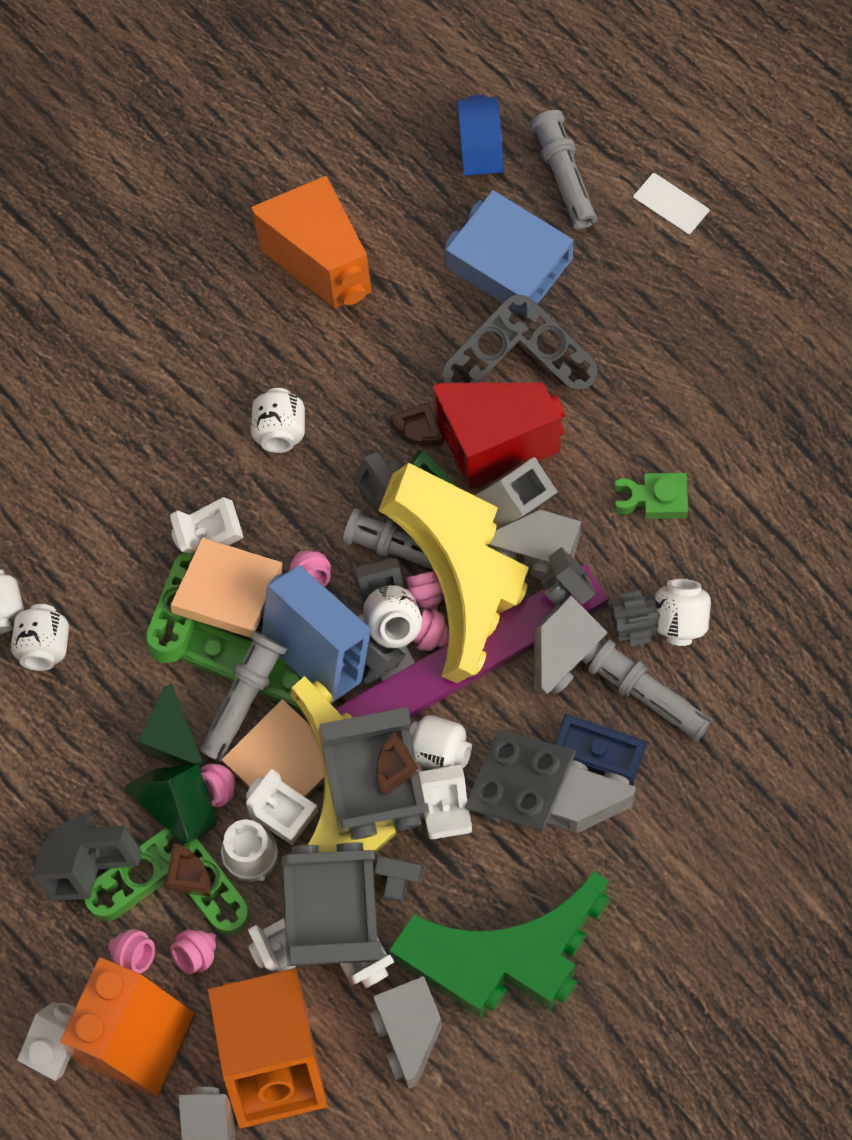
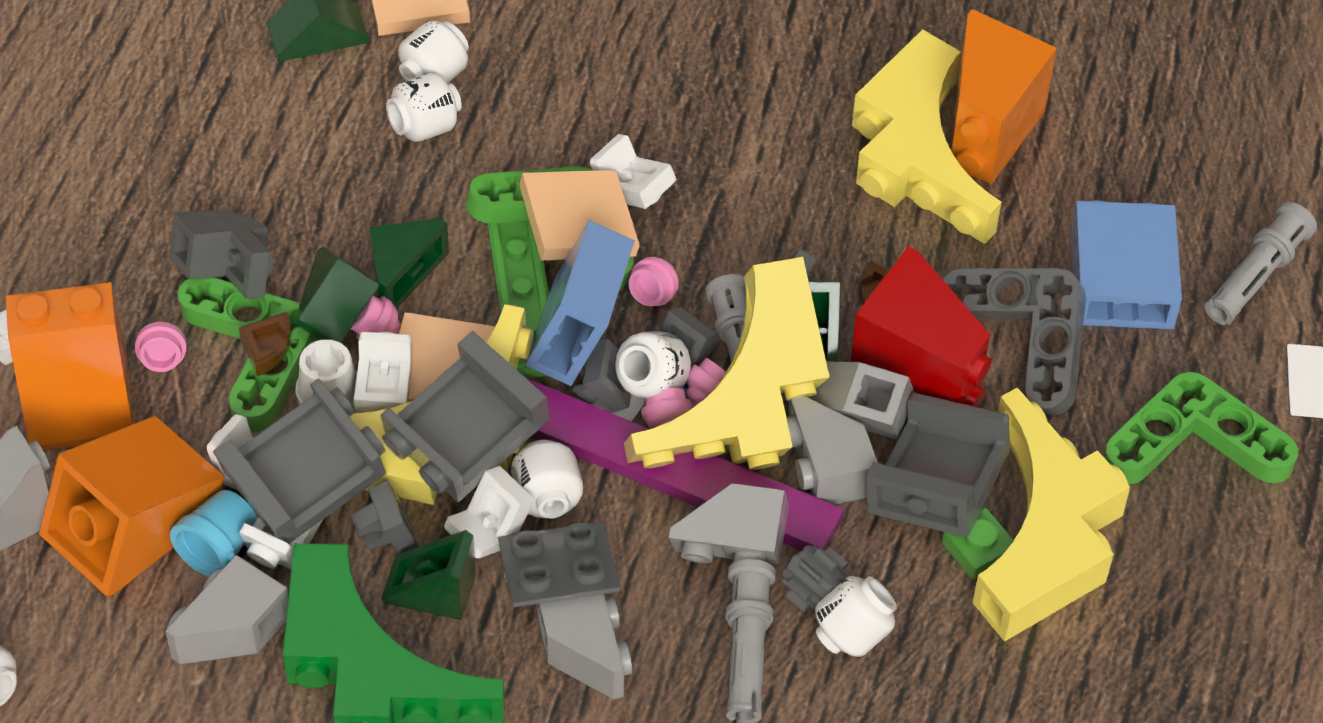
camera: 50 degrees right, 15 degrees down
(193, 950) = (196, 395): bright pink plate -> none
(249, 678) = (499, 281): light grey pin -> none
(277, 420) = (787, 170): white head -> none
(322, 327) = (908, 142): none -> light yellow arch
(333, 1001) = (211, 532): none -> medium azure piece
(395, 764) = (487, 432): reddish brown tile -> none
(465, 870) = (434, 576): none -> dark green slope
(480, 135) = (1226, 168): blue brick -> none
(566, 579) = (804, 481): dark grey tile -> none
(599, 481) = (940, 465): none -> dark grey panel
(601, 747) = (651, 628): dark blue plate -> none
(661, 290) = (1201, 418): none -> bright green beam
(672, 423) = (1059, 545): none -> light yellow arch

